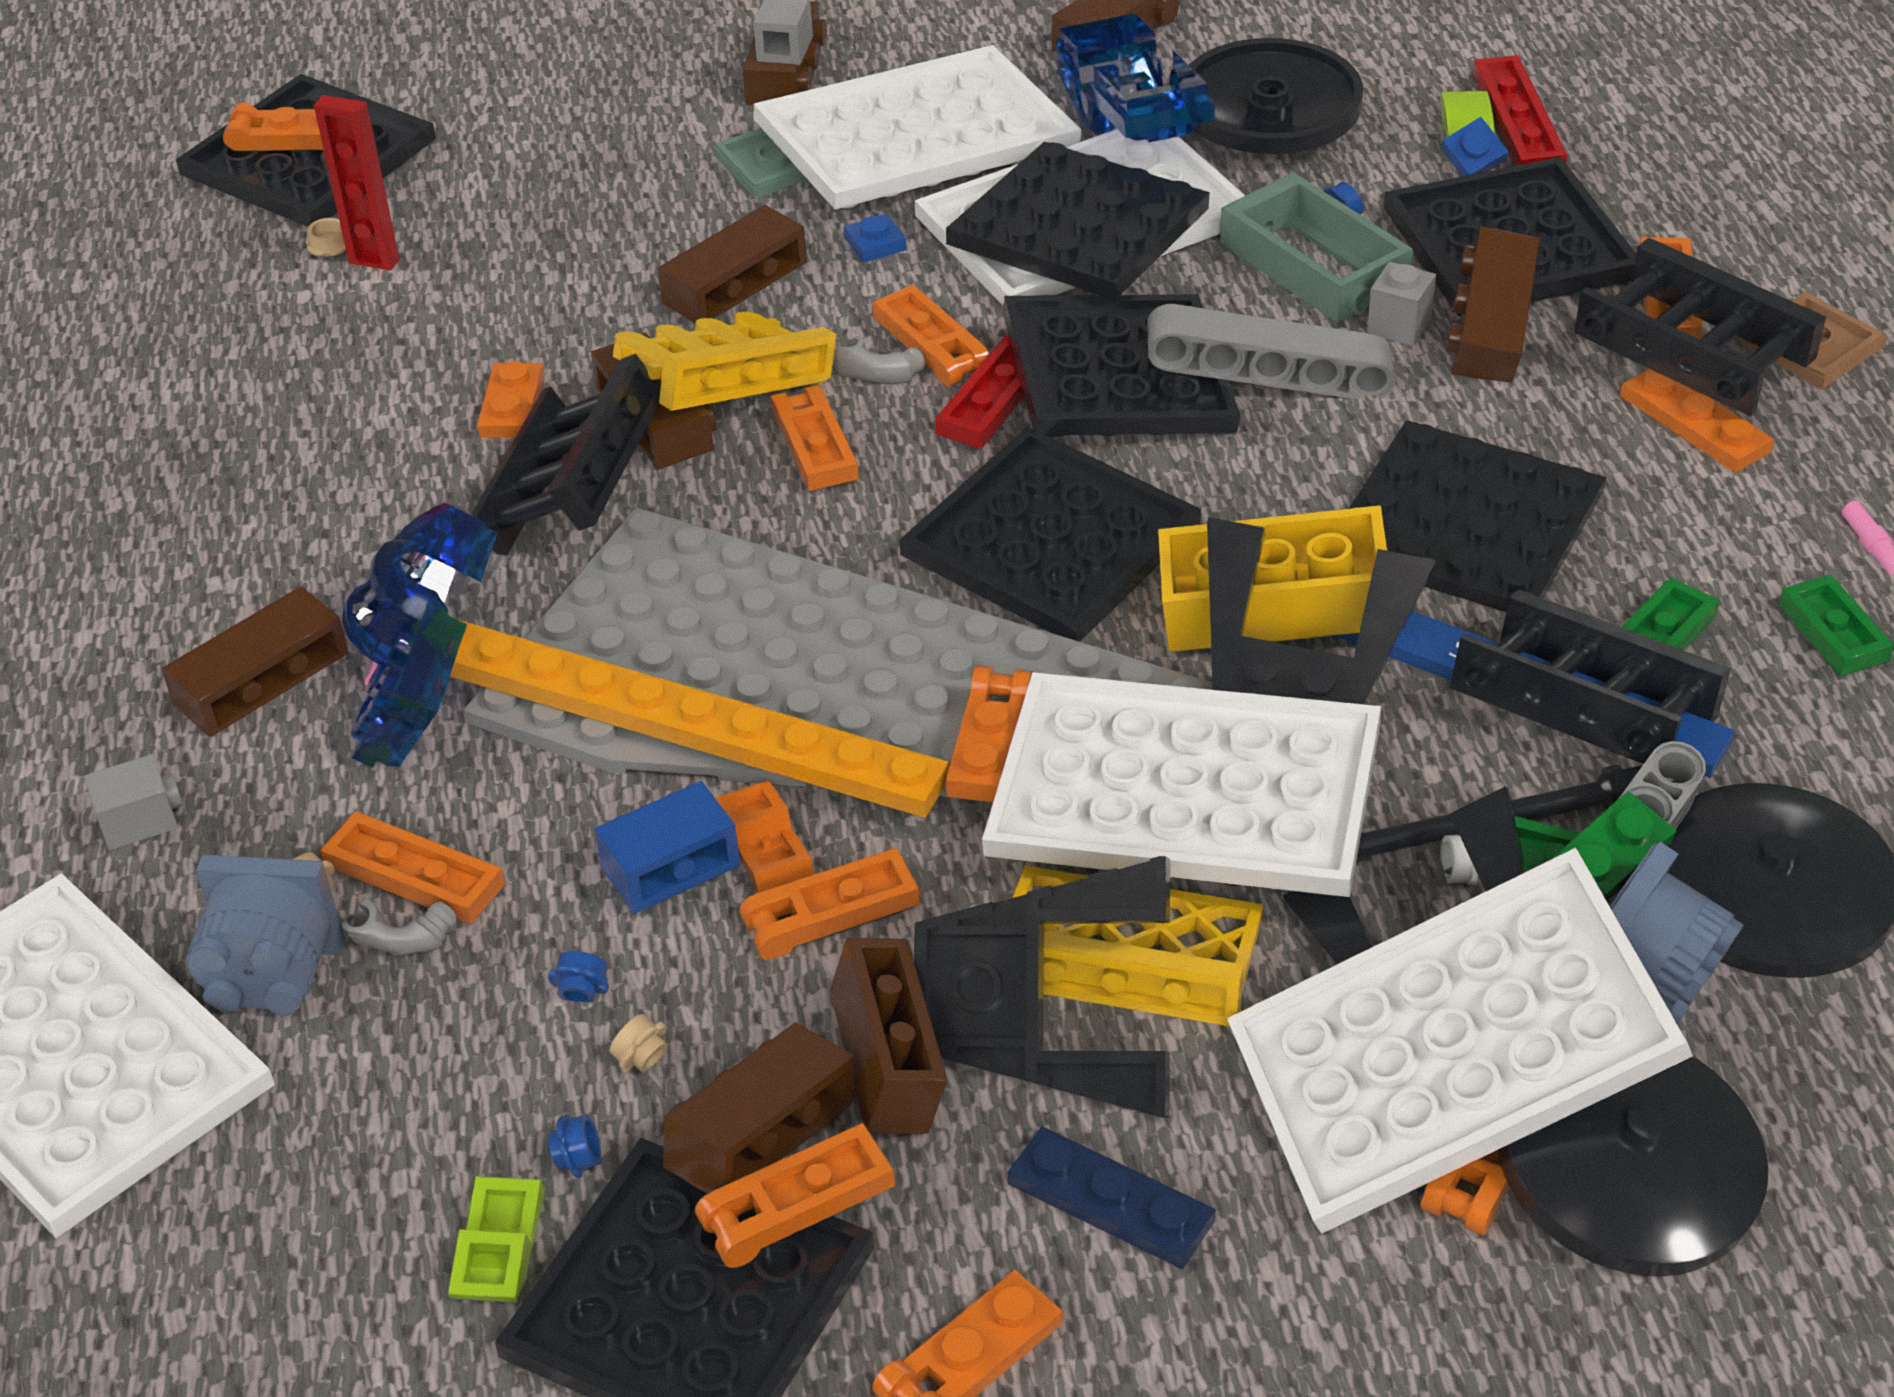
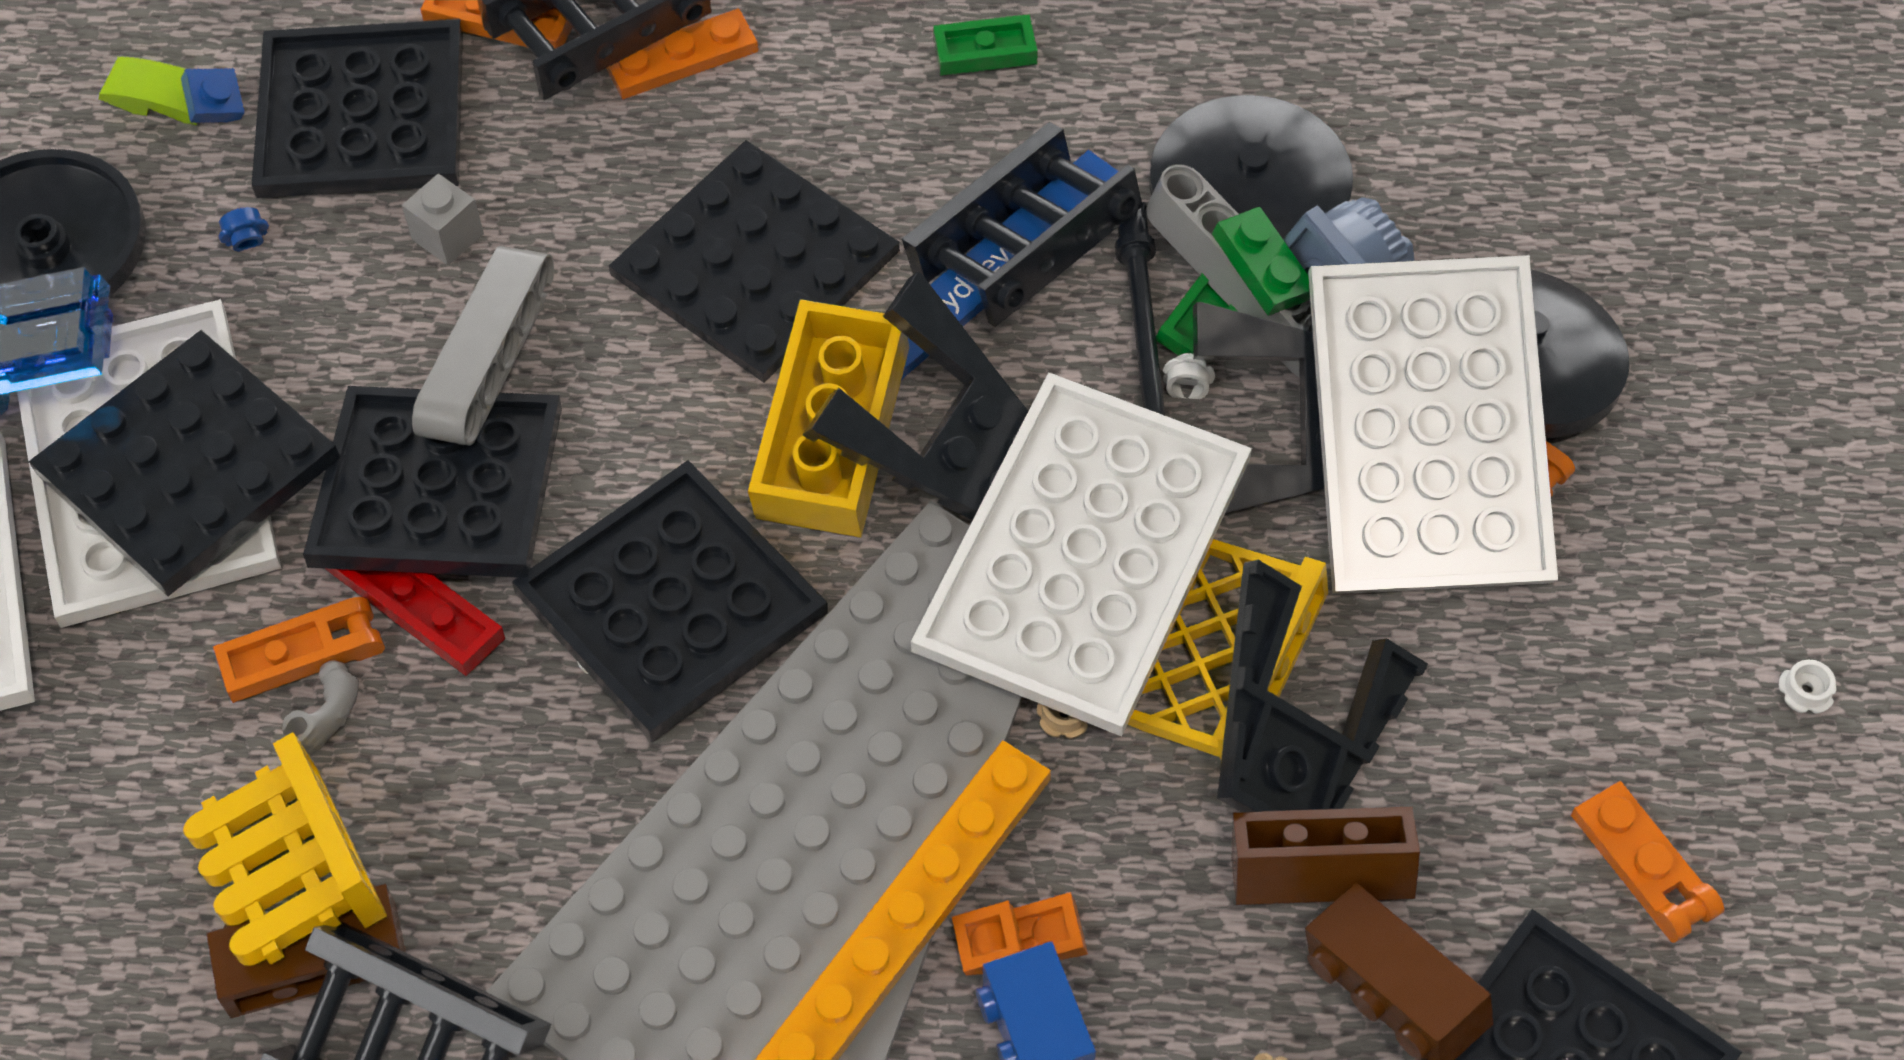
camera: 80 degrees left, 15 degrees up
(732, 264) = (83, 831): reddish brown brick -> none
(794, 1194) = (1503, 956): orange plate -> none
(814, 438) = (428, 793): orange plate -> none
(829, 902) = (1128, 885): orange plate -> none
(875, 237) = (86, 675): blue plate -> none
(986, 733) = (963, 699): orange plate -> none
(1112, 1197) = (1500, 724): dark blue plate -> none
(1324, 221) = (305, 238): sand green piece -> none
(1493, 305) = (491, 143): reddish brown brick -> none
(1518, 110) = (181, 43): red plate -> none
(1674, 614) = (946, 152): green plate -> none

